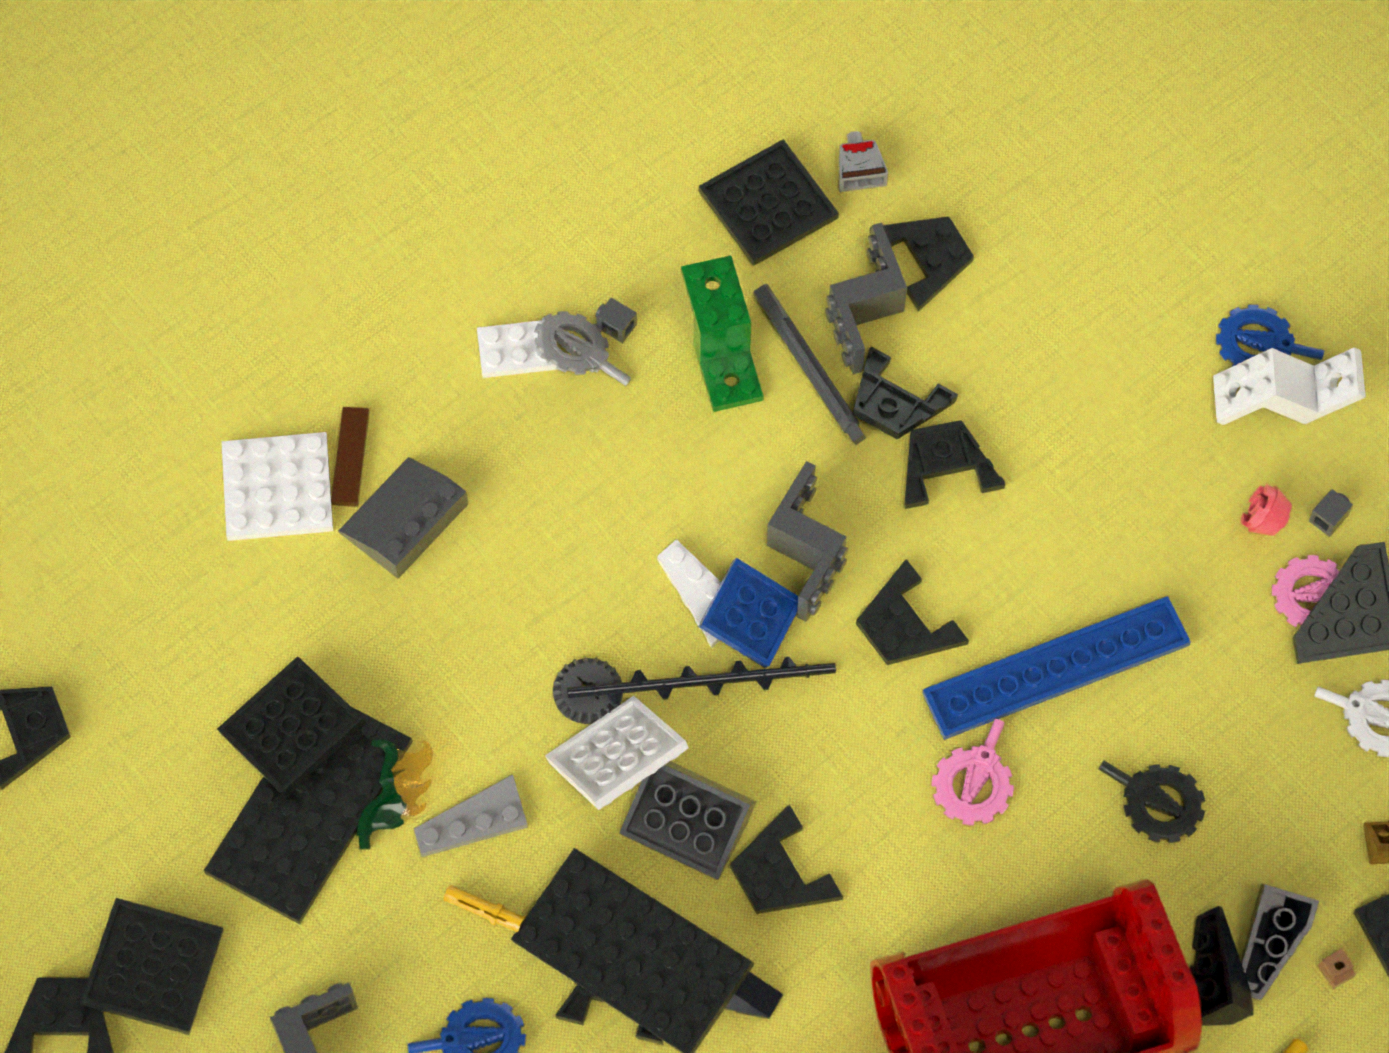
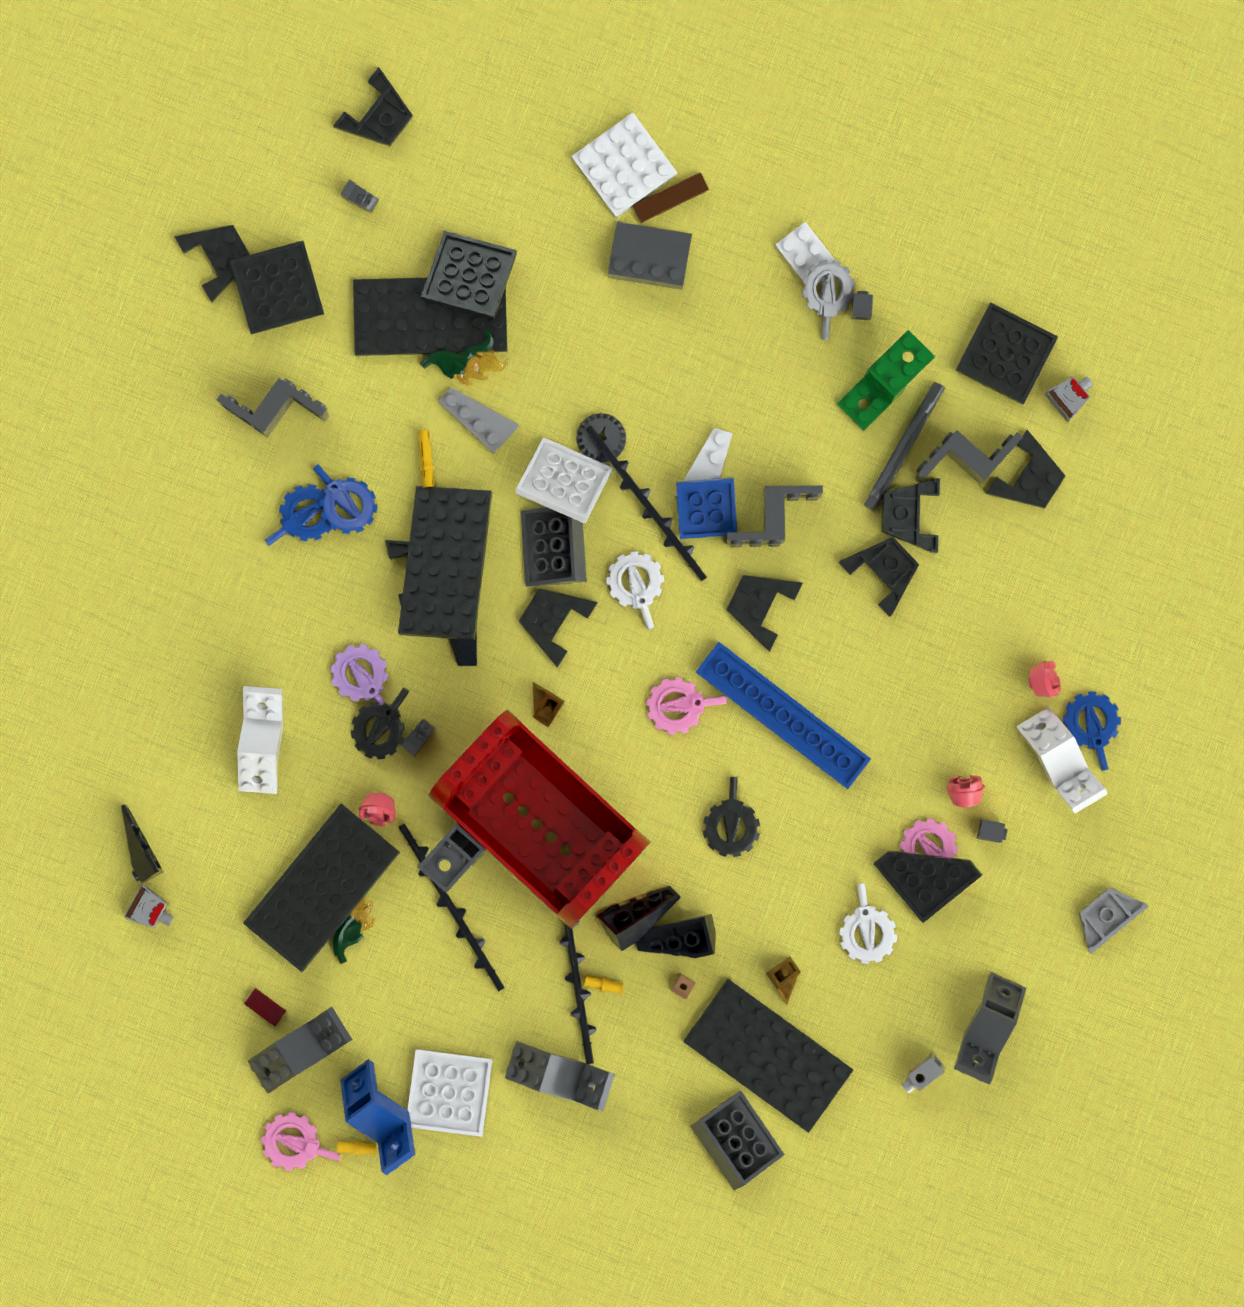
camera: 60 degrees right, 20 degrees up
(108, 805) = (359, 196): none -> dark grey leg
(810, 750) = (640, 595): none -> white bar
(881, 933) = (545, 705): none -> pearl gold slope
(1180, 357) = (1045, 680): none -> coral cone

